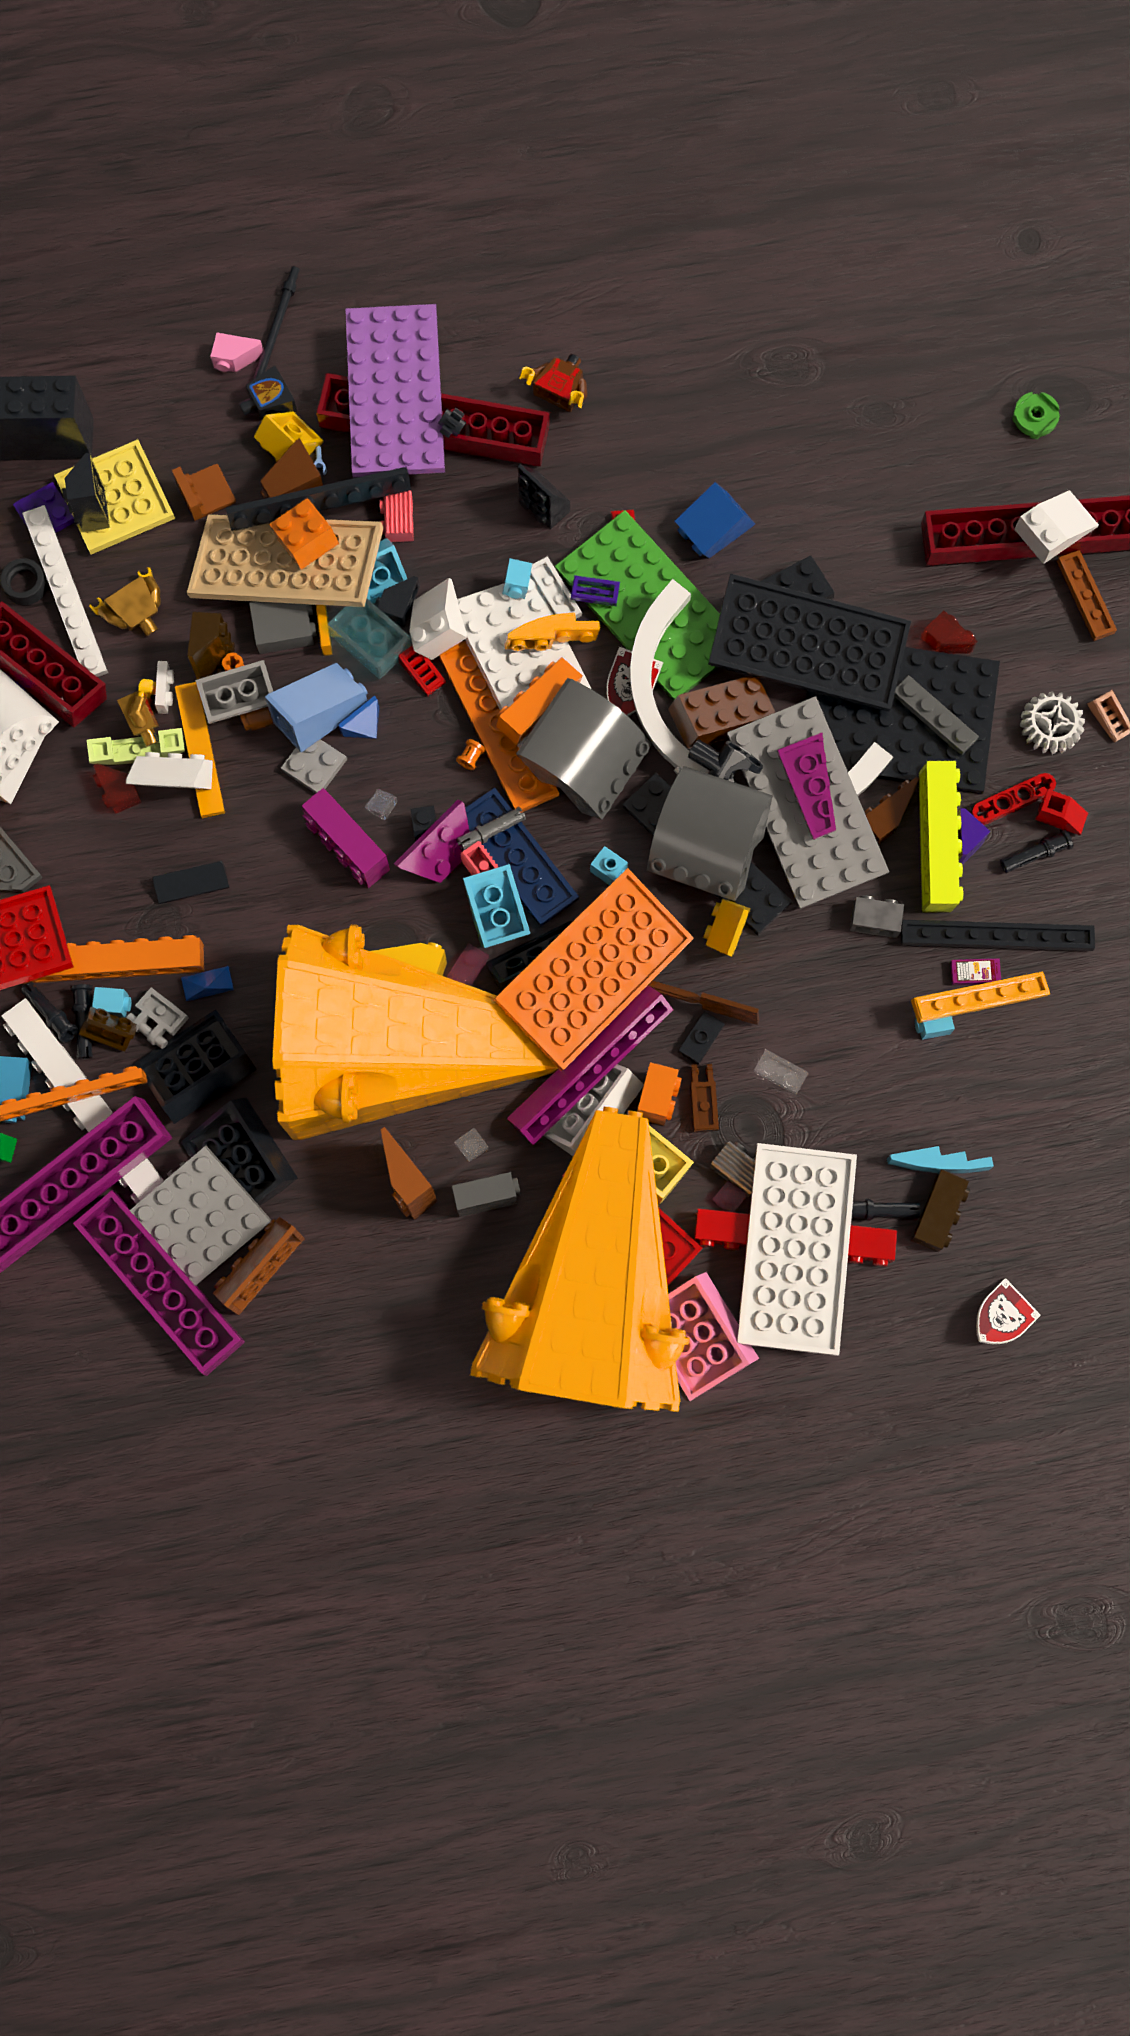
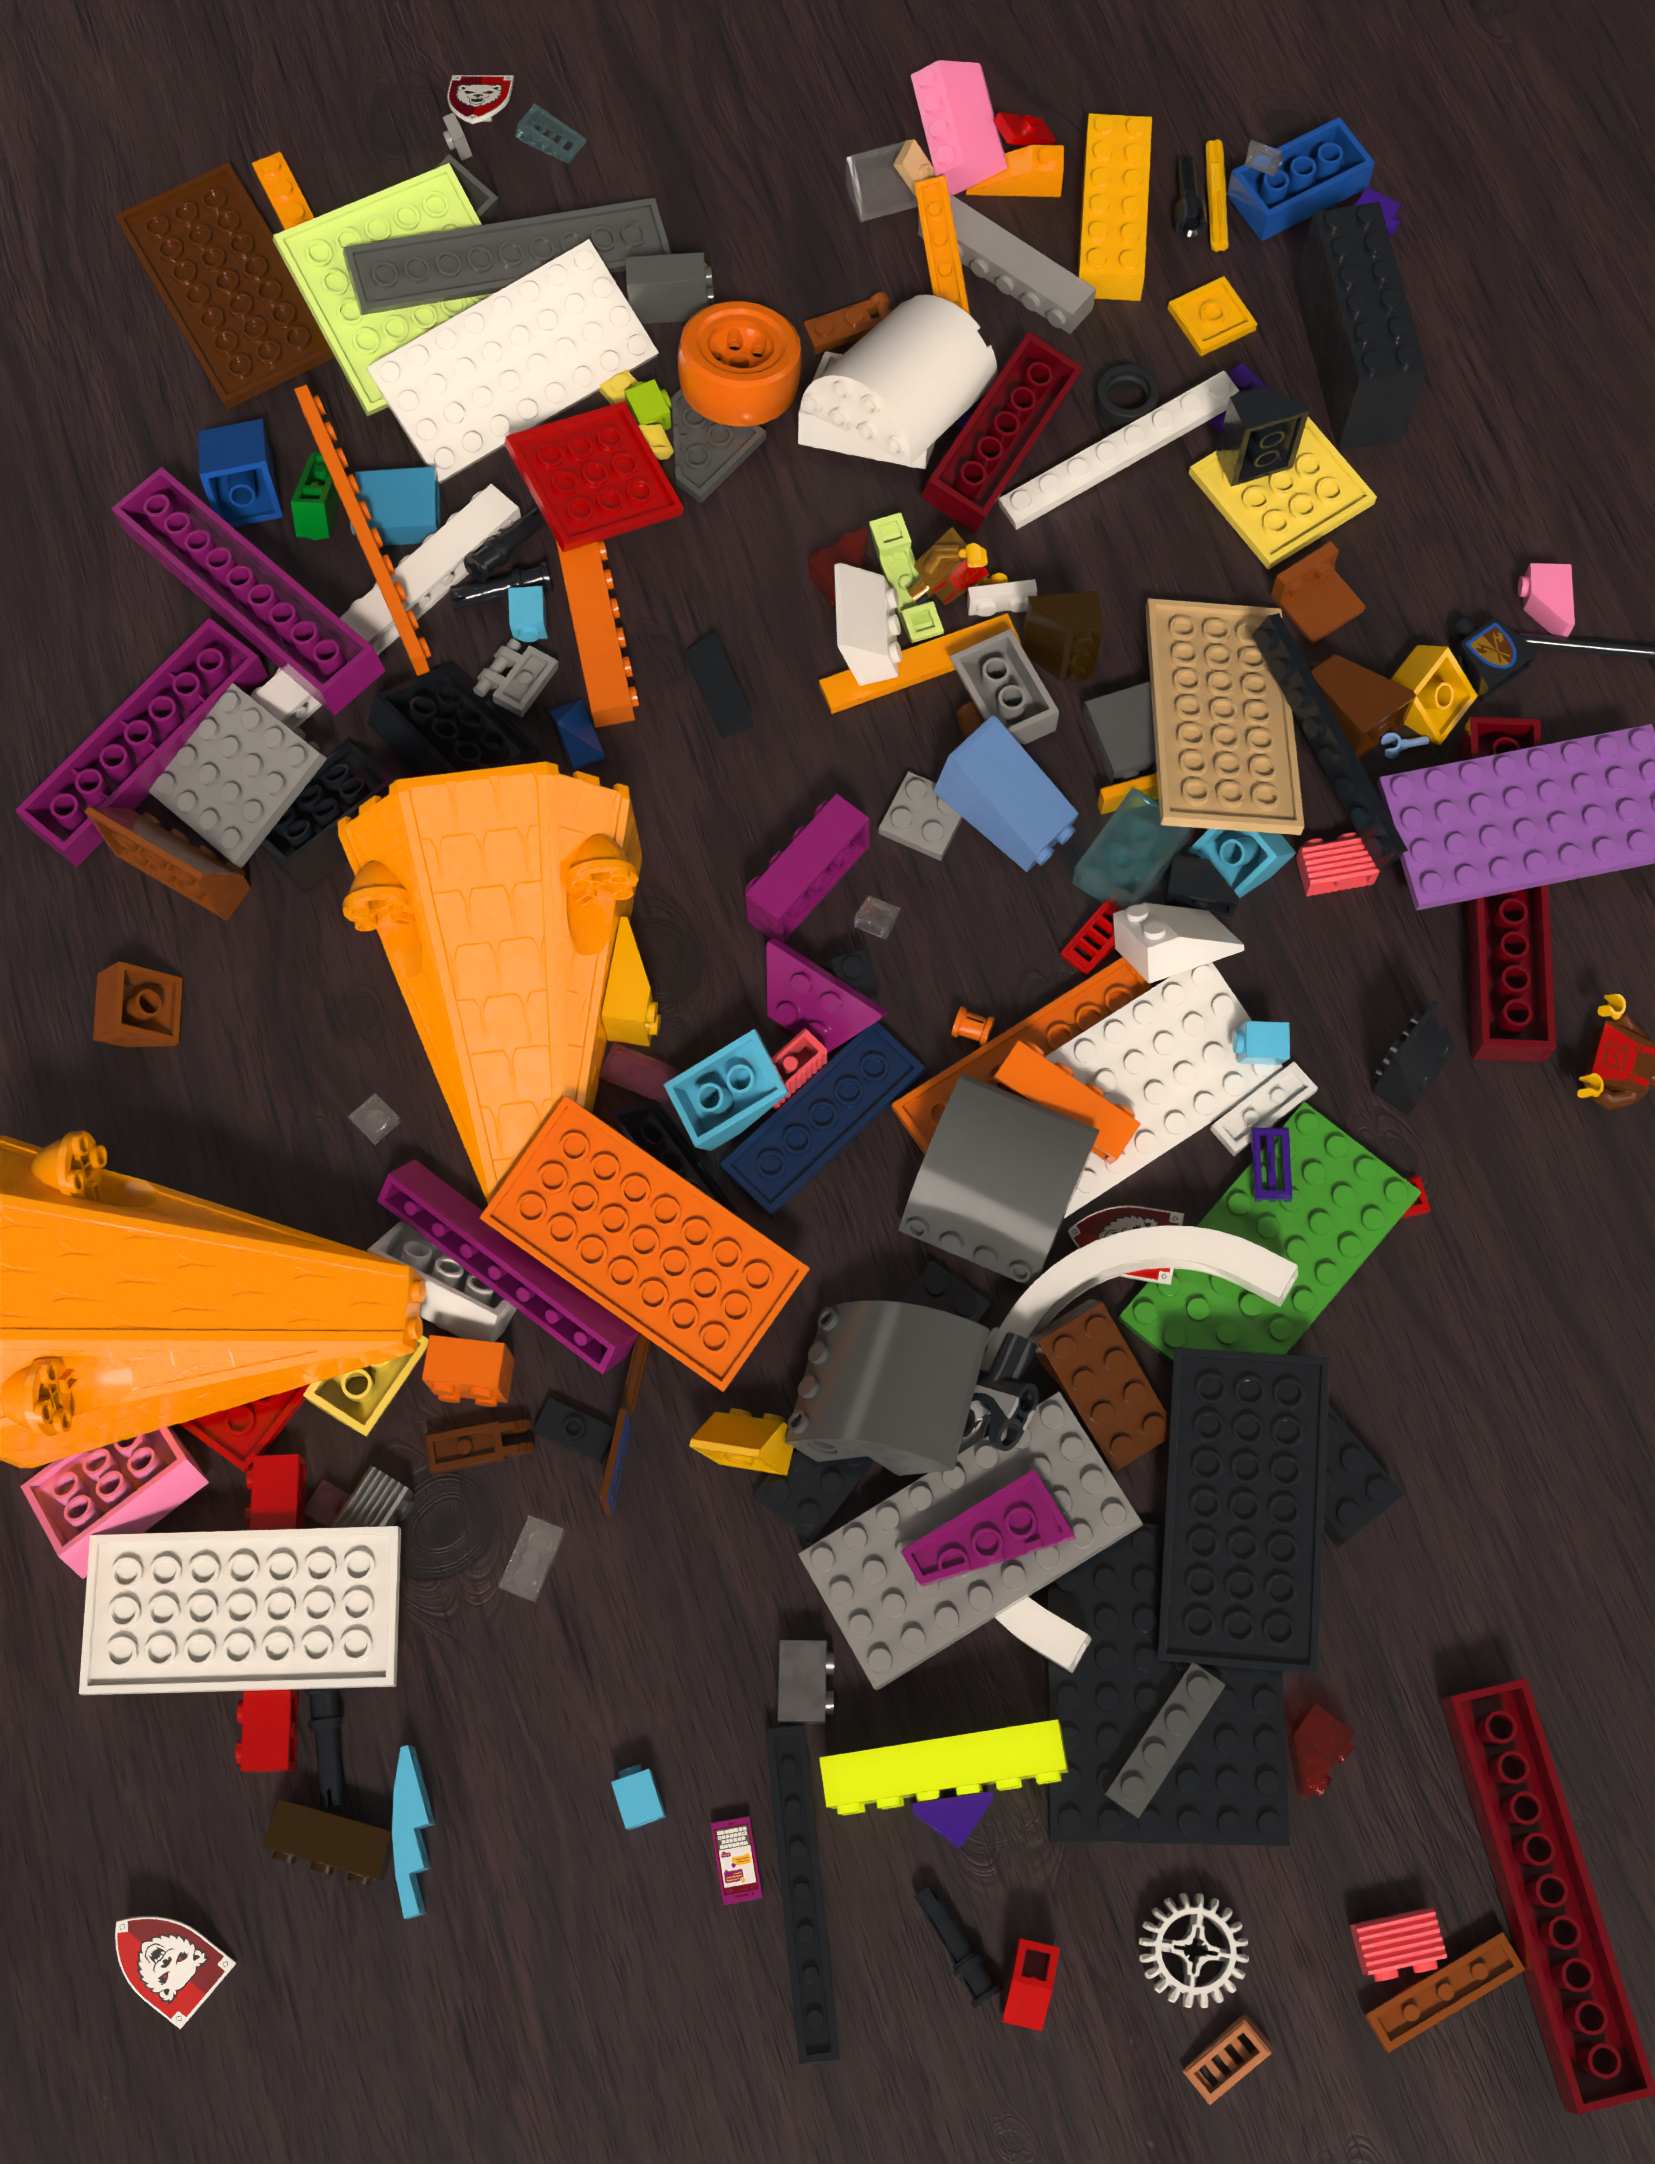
camera: 85 degrees right, 5 degrees down
(108, 1028) = (488, 614): dark brown bracket -> none
(132, 605) = (1119, 536): pearl gold torso -> none
(232, 659) = (1055, 680): orange bush -> none
(304, 533) = (1260, 724): orange brick -> none
(362, 722) = (1000, 870): slope -> none
(363, 1301) = (137, 1007): none -> dark orange slope
(411, 1188) = (301, 1018): dark orange slope -> none
(451, 422) = (1495, 902): black gear -> none
(482, 833) = (852, 1067): dark grey pin -> none
(486, 1194) = (295, 1144): dark grey brick -> none
(542, 632) = (1181, 1091): light orange slope -> none
(608, 865) = (825, 1252): medium azure brick -> none
(713, 521) = (1437, 1335): blue slope -> none
(888, 814) = (977, 1681): reddish brown slope -> none
(980, 997) = (686, 1870): light orange tile -> none
(1014, 801) = (1048, 1893): red beam -> none
(1054, 525) = (1550, 1913): white slope -> none
(1058, 614) = (1398, 1942): none -> coral brick

